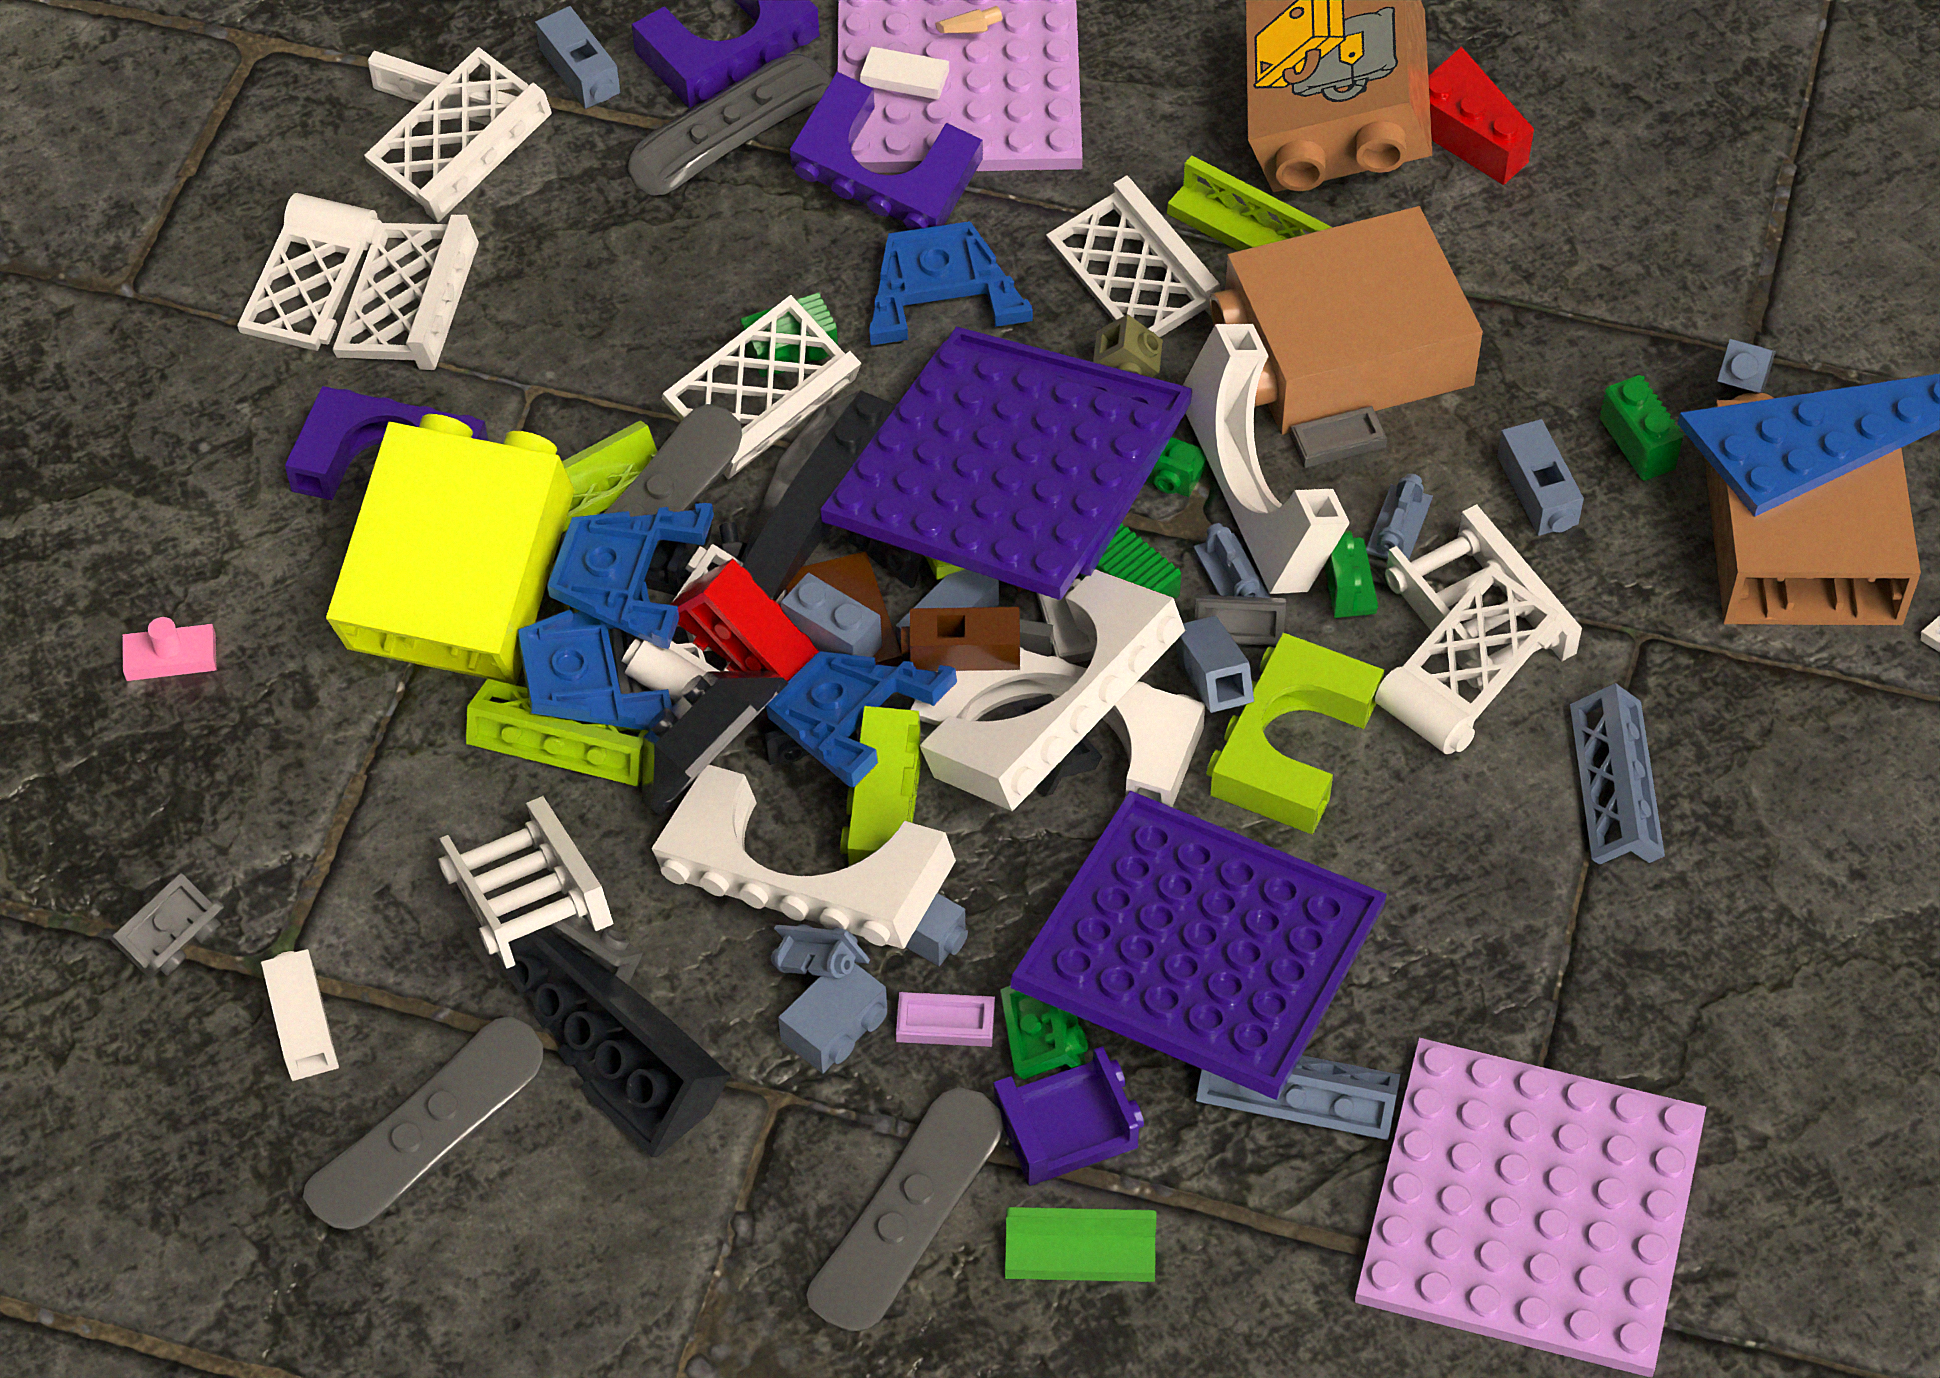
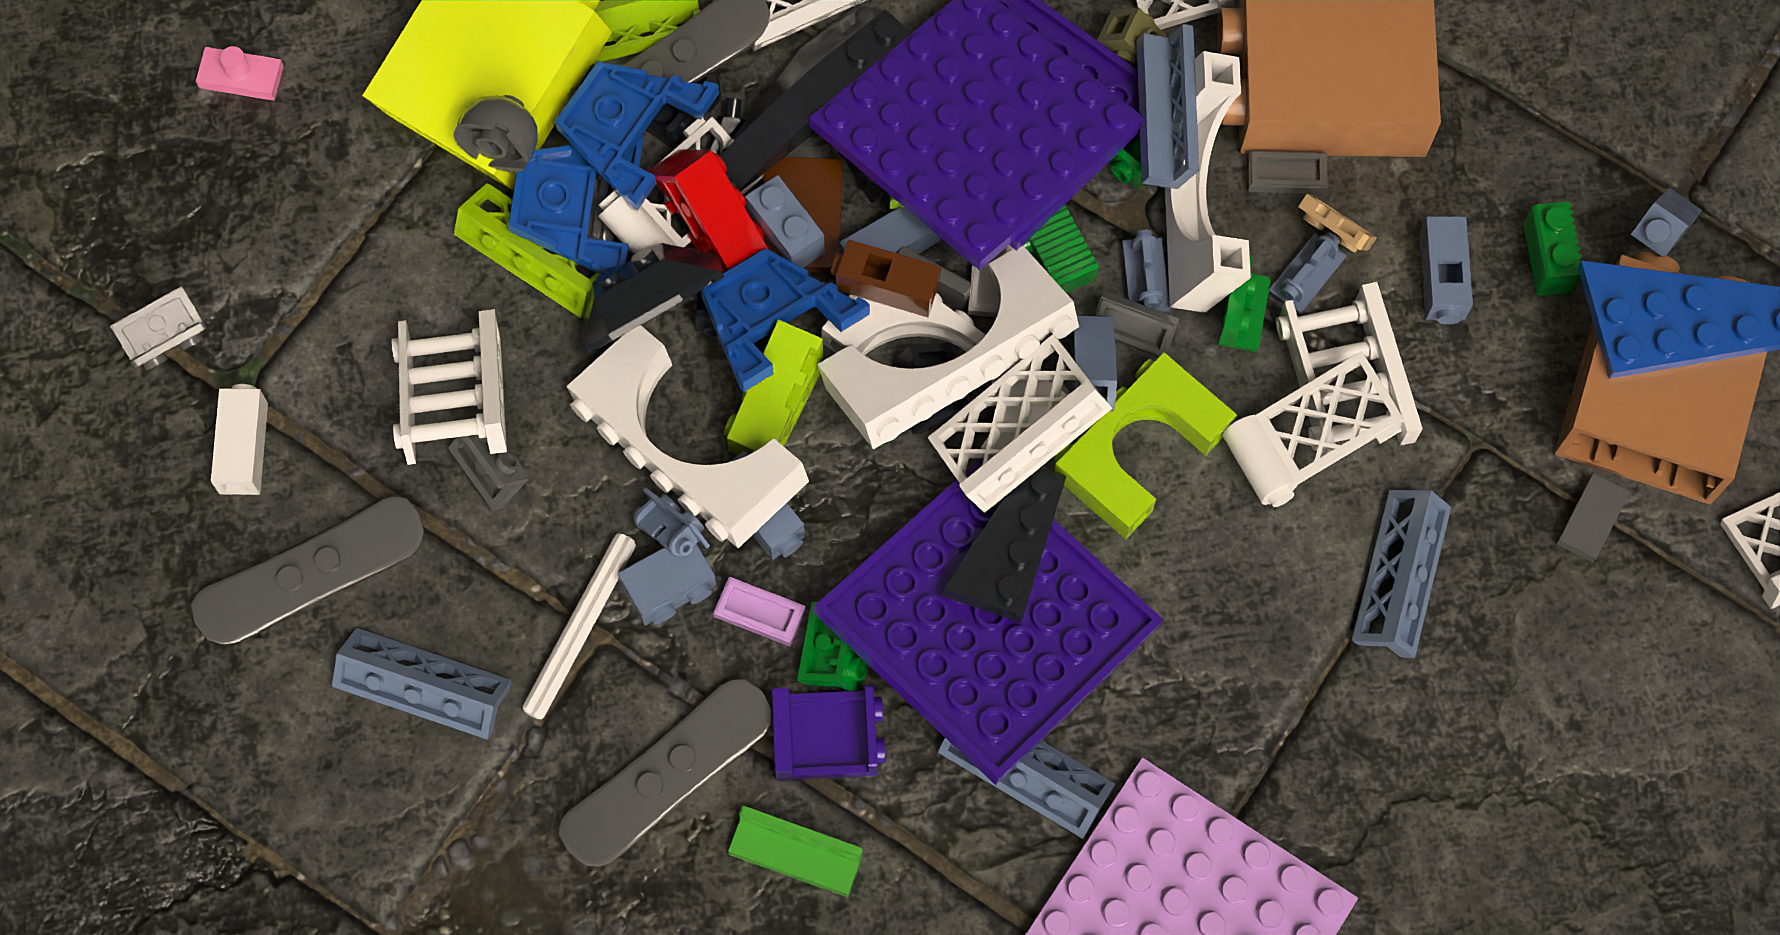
camera: 15 degrees right, 15 degrees up
(495, 603) = (499, 131): none -> dark grey cylinder
(593, 1204) = (416, 687): none -> sand blue fence
(623, 1047) = (490, 556): black wedge -> none
(751, 1093) = (579, 626): none -> white axle
(1178, 379) = (1168, 108): none -> sand blue fence
(1183, 749) = (1033, 442): none -> white fence
(1197, 867) = (1007, 553): none -> black wing
(1395, 461) = (1349, 233): none -> tan wing
(1790, 669) = (1593, 517): none -> dark grey tile

